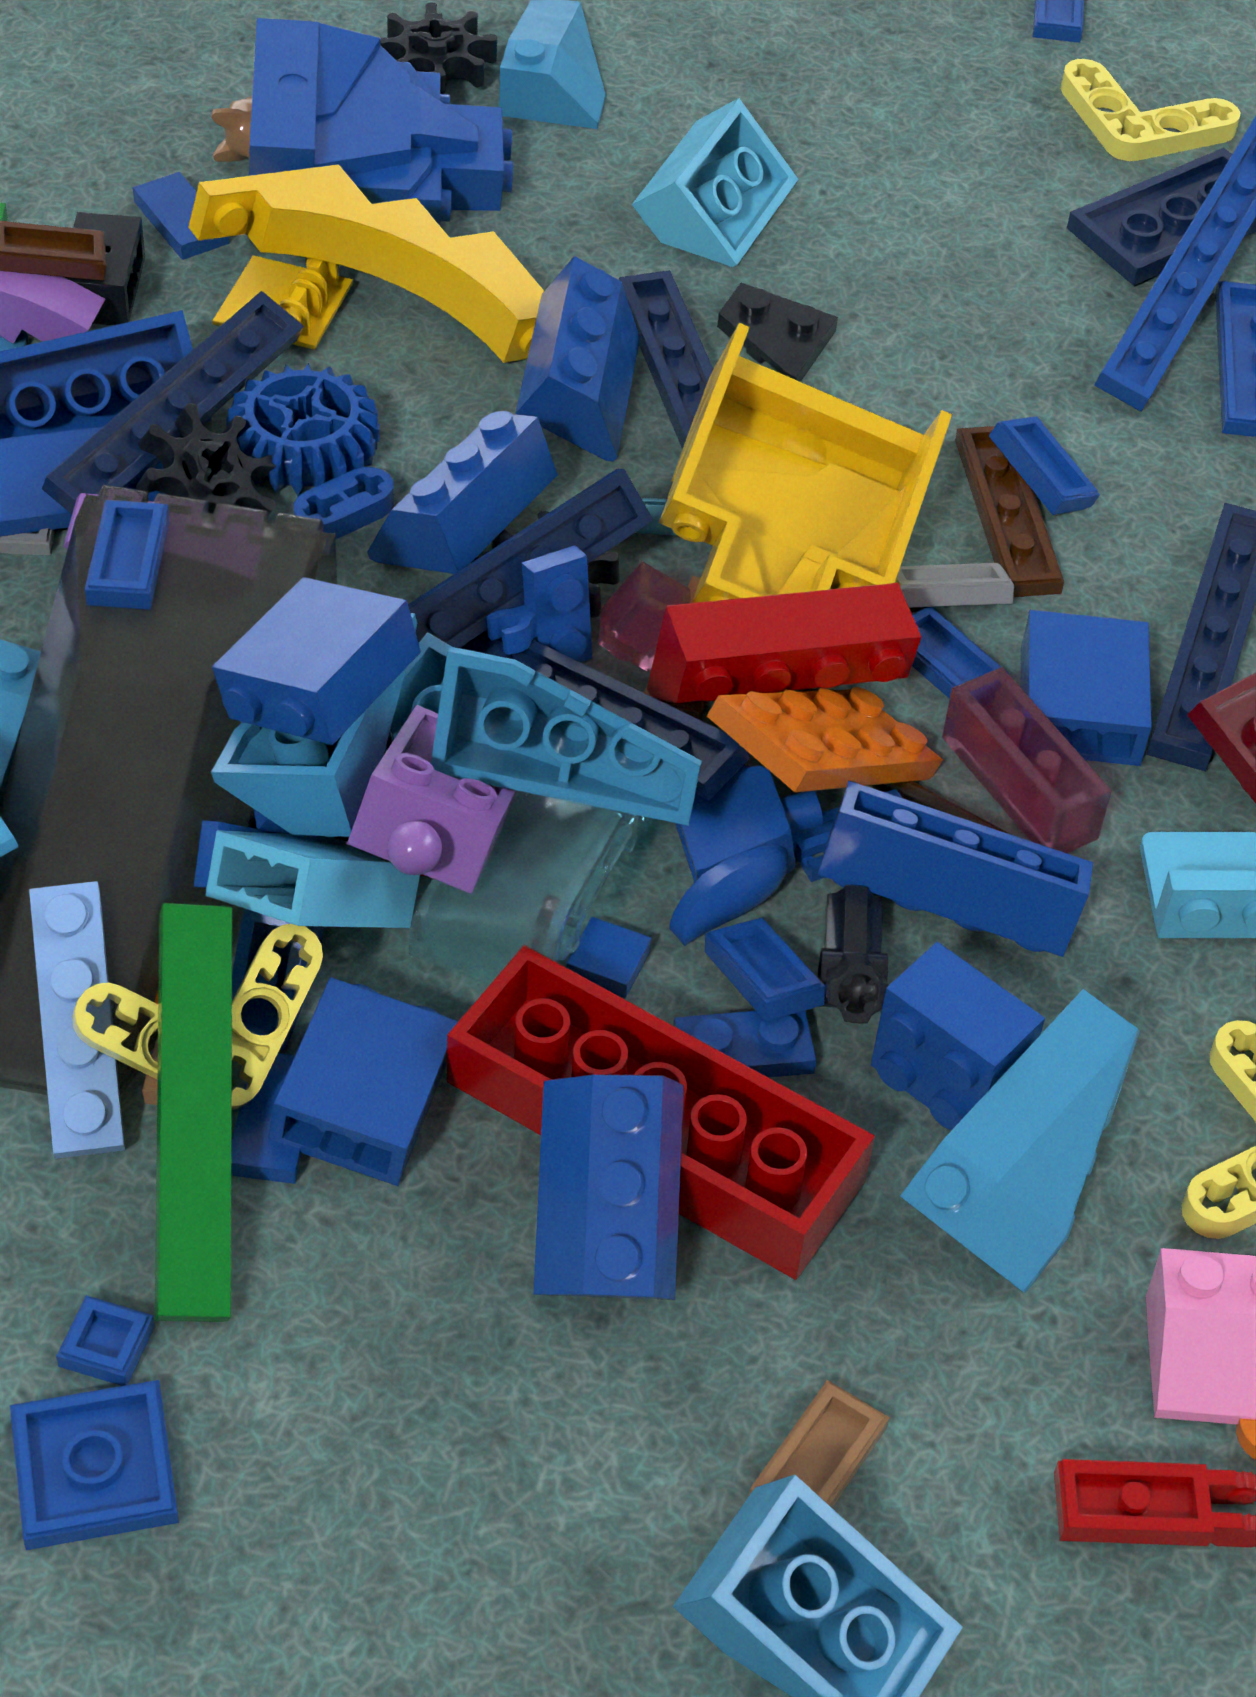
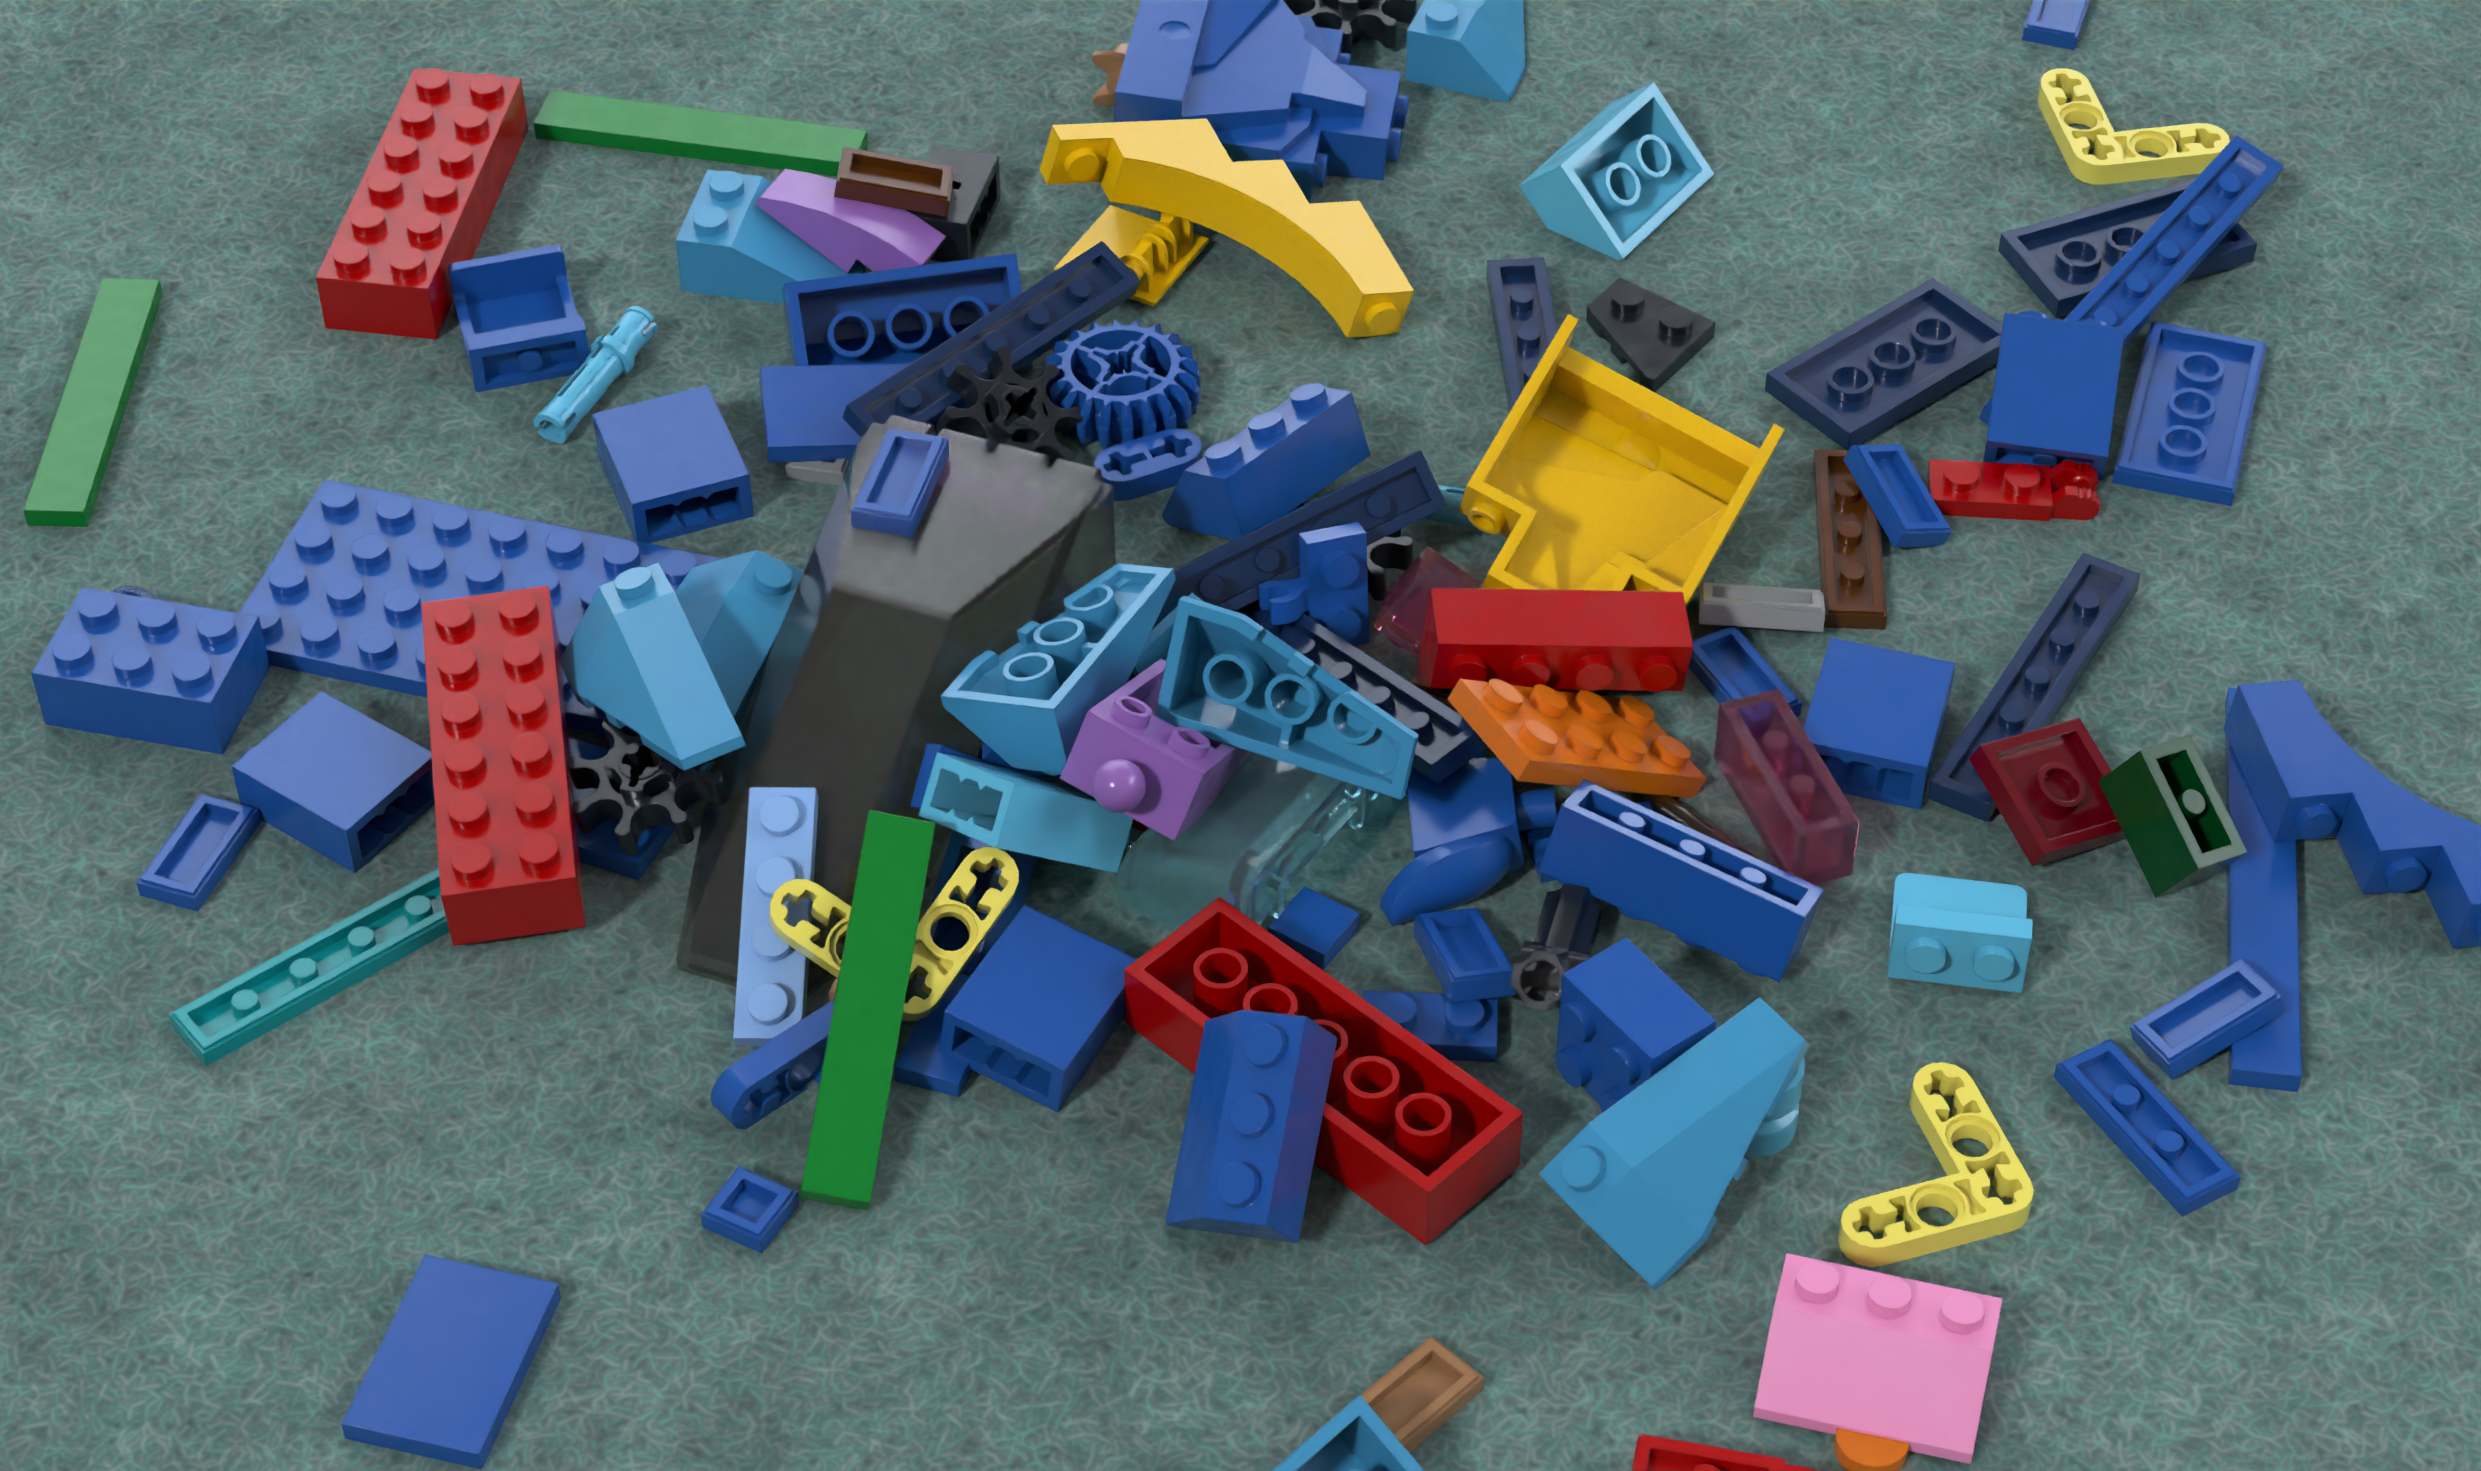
camera: 15 degrees right, 5 degrees down
(93, 1465) = (716, 1313): blue tile -> none
(105, 1184) = (768, 1074): none -> blue beam
(169, 207) = (1026, 145): blue tile -> none
(317, 660) = (1062, 600): brick -> none
(582, 359) = (1423, 342): blue slope -> none
(1002, 342) = (1887, 364): none -> dark blue plate
(1143, 448) = (2014, 490): none -> red hinge
(1165, 357) = (2054, 391): none -> blue panel

